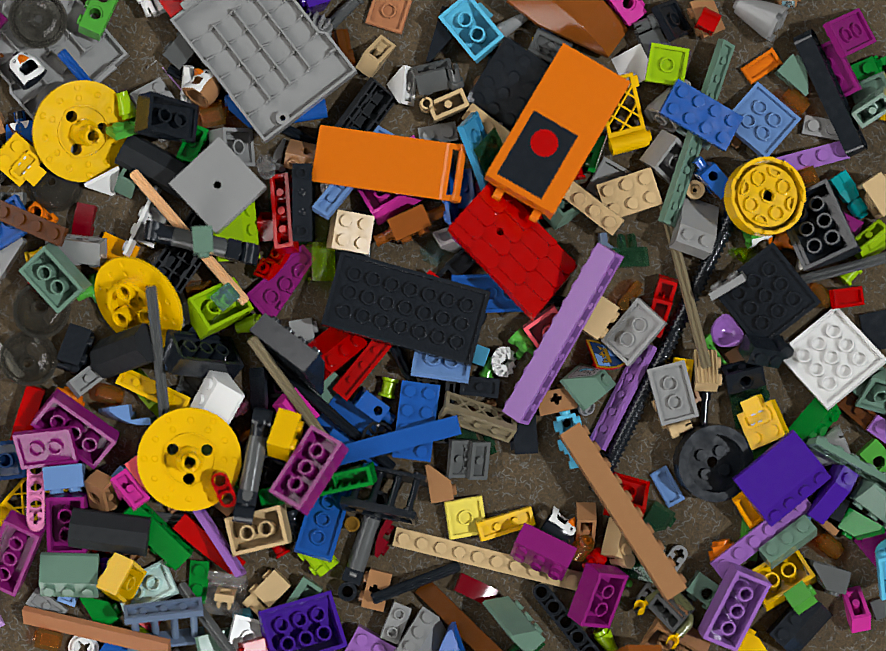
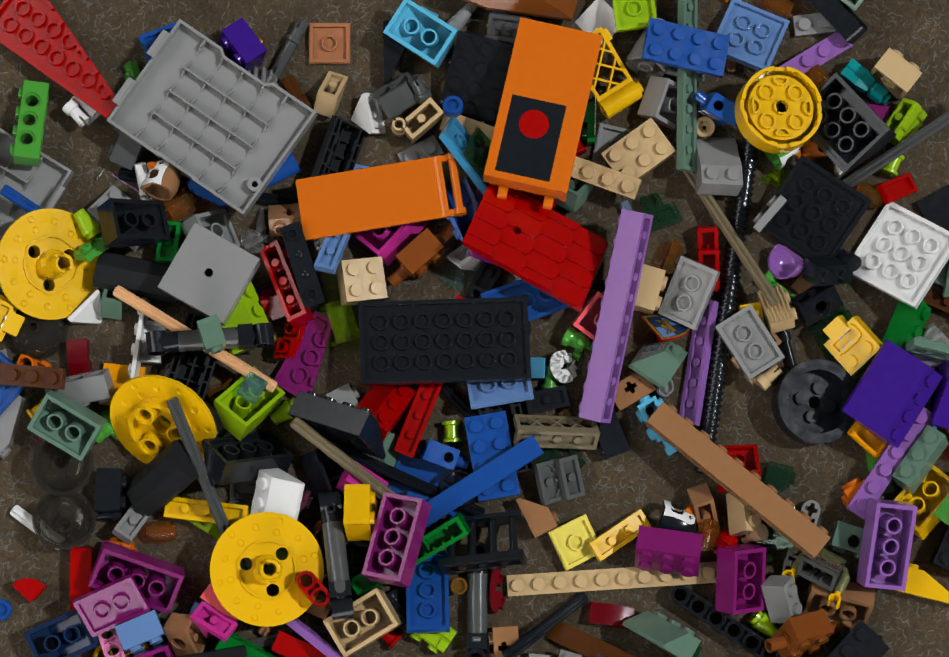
camera: 20 degrees left, 5 degrees down
(125, 414) = (183, 547): medium blue slope -> none
(479, 102) = (453, 106): none -> blue tile
(627, 623) = (781, 598): none -> light grey brick
(667, 486) = (775, 443): medium blue tile -> none

